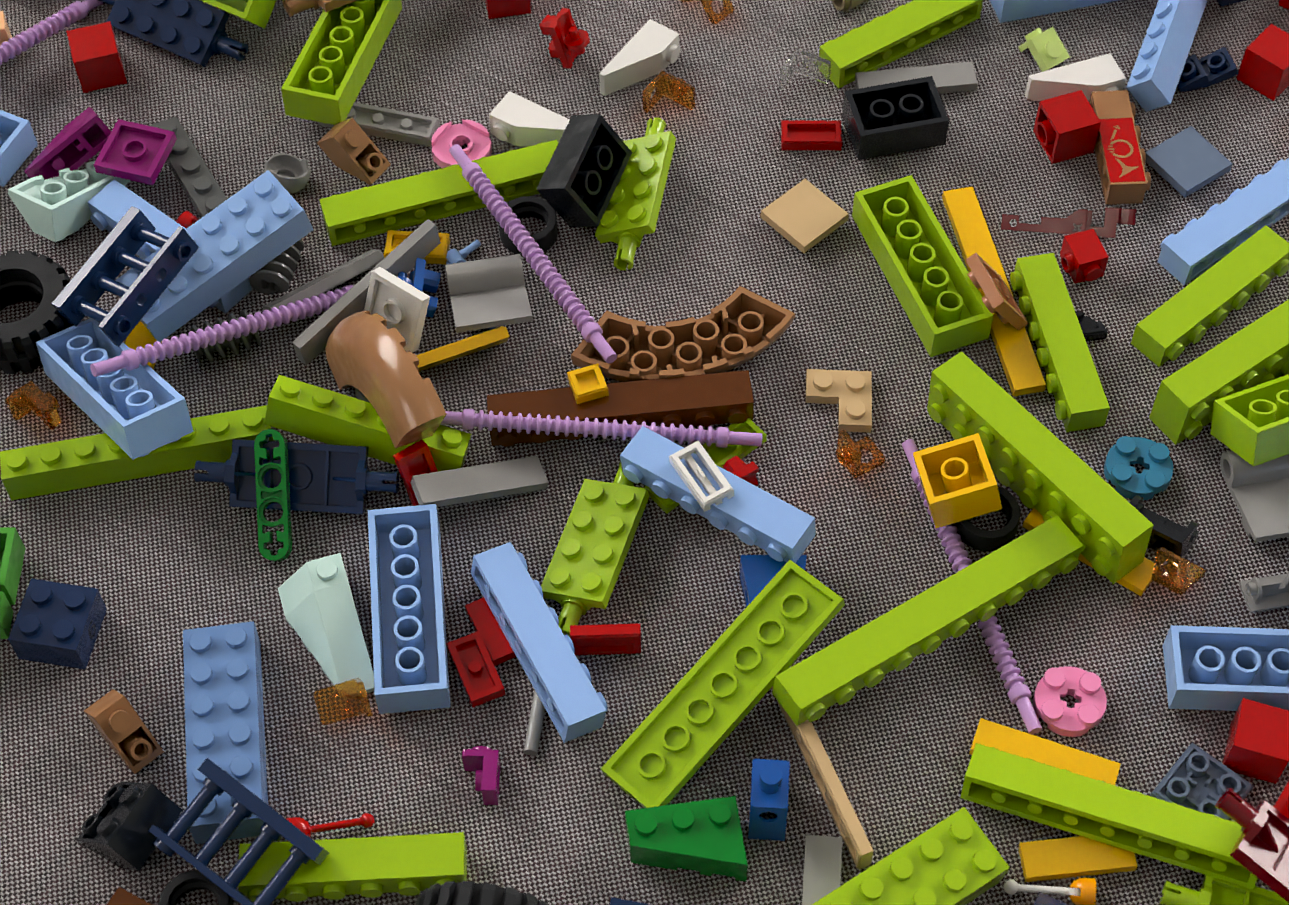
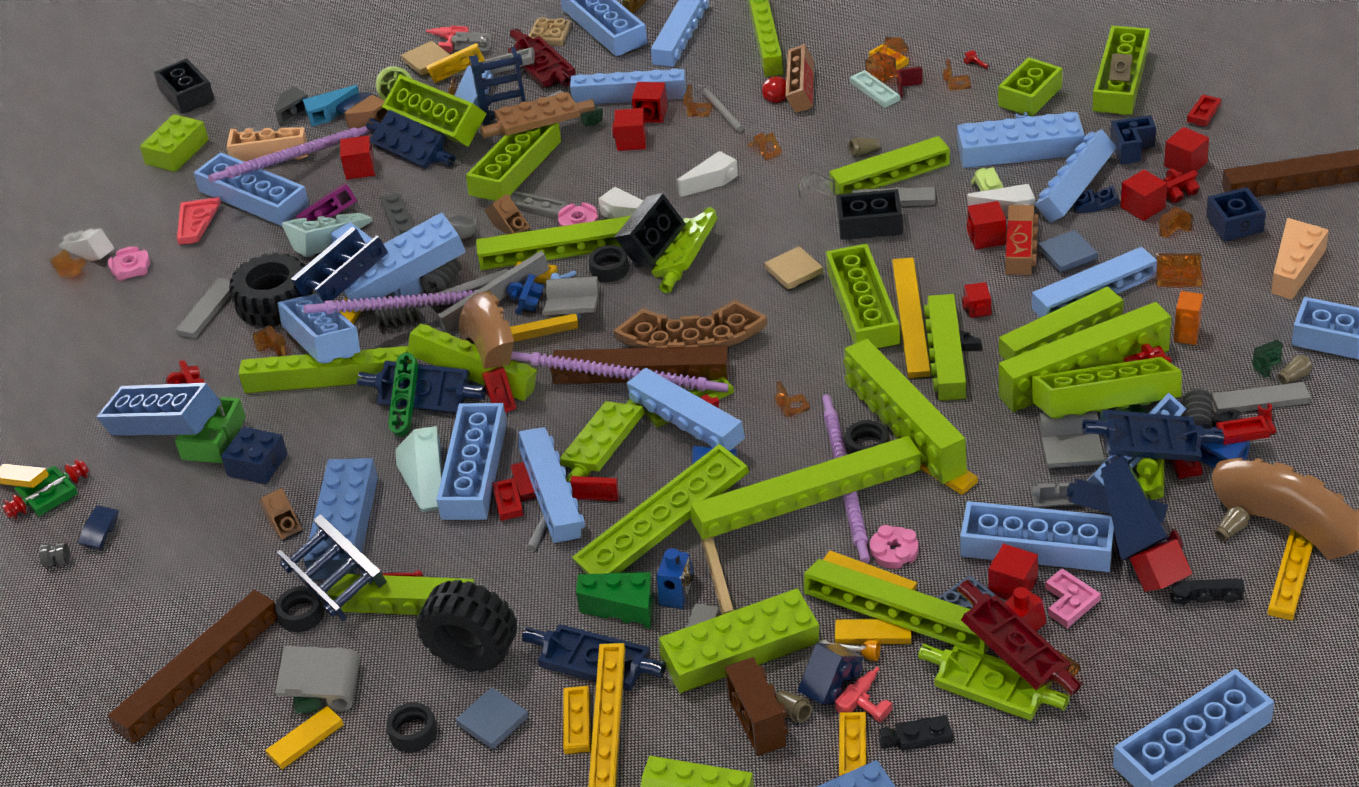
camera: 15 degrees right, 15 degrees down
(123, 824) = (263, 565): black slope -> none
(135, 152) = (366, 207): magenta plate -> none
(342, 701) = (417, 509): clear orange bracket -> none
(399, 304) = (511, 298): white plate -> none
(479, 482) = (537, 397): light grey tile -> none
(487, 767) = (498, 552): magenta bracket -> none
(534, 255) = (603, 273): lavender hose -> none
(566, 38) = (661, 159): red hips -> none
(587, 383) = (619, 346): yellow tile -> none
(671, 87) = (722, 191): clear orange bracket -> none
(714, 496) = (678, 404): white tile -> none
(811, 135) = (813, 224): red tile -> none
(849, 390) = (794, 367): tan plate -> none
(957, 480) = (845, 411): yellow brick -> none
(997, 295) = (905, 312): nougat plate -> none
(1082, 216) = (959, 281): dark red piece -> none
(1146, 453) = (991, 426): dark azure plate -> none
(1167, 533) = (984, 459): black hinge -> none
(1177, 574) = (987, 482): clear orange bracket -> none

